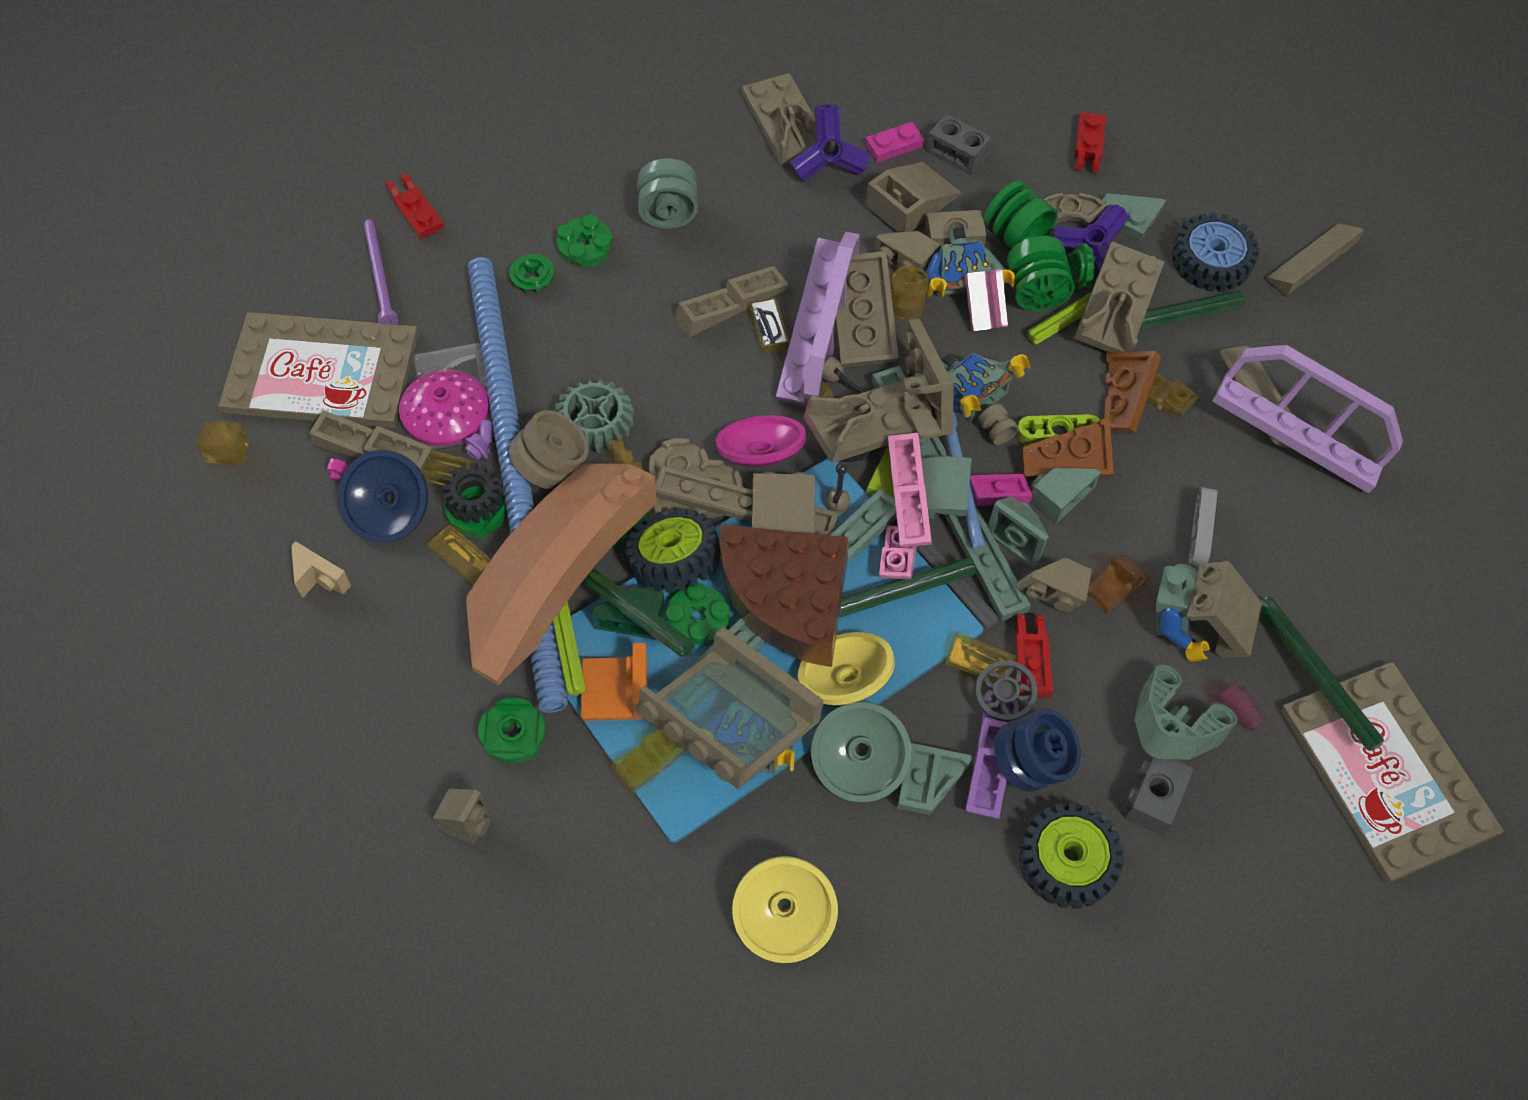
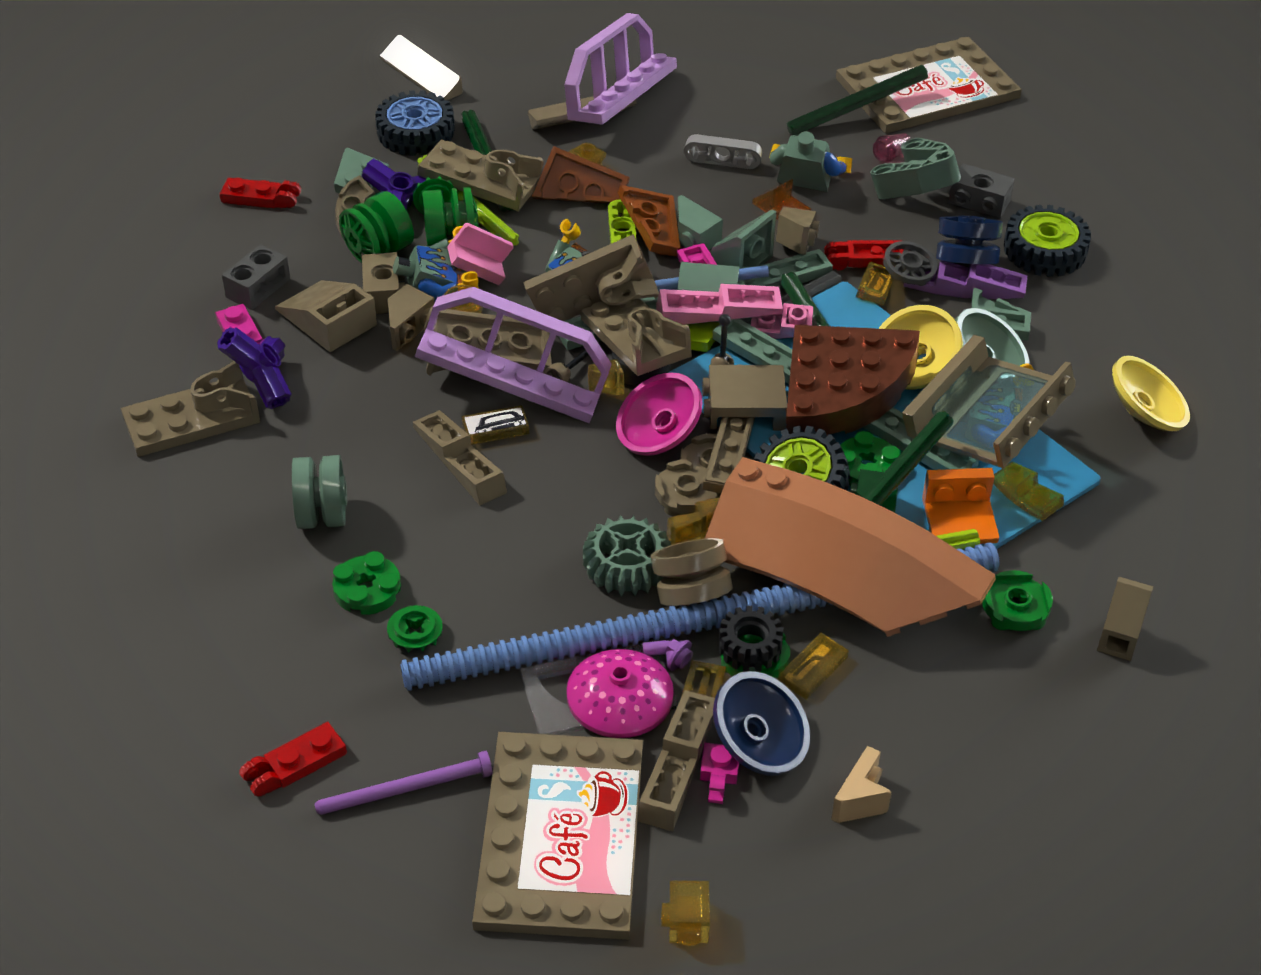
camera: 90 degrees left, 15 degrees down
(1228, 605) = (823, 127): dark tan panel -> none

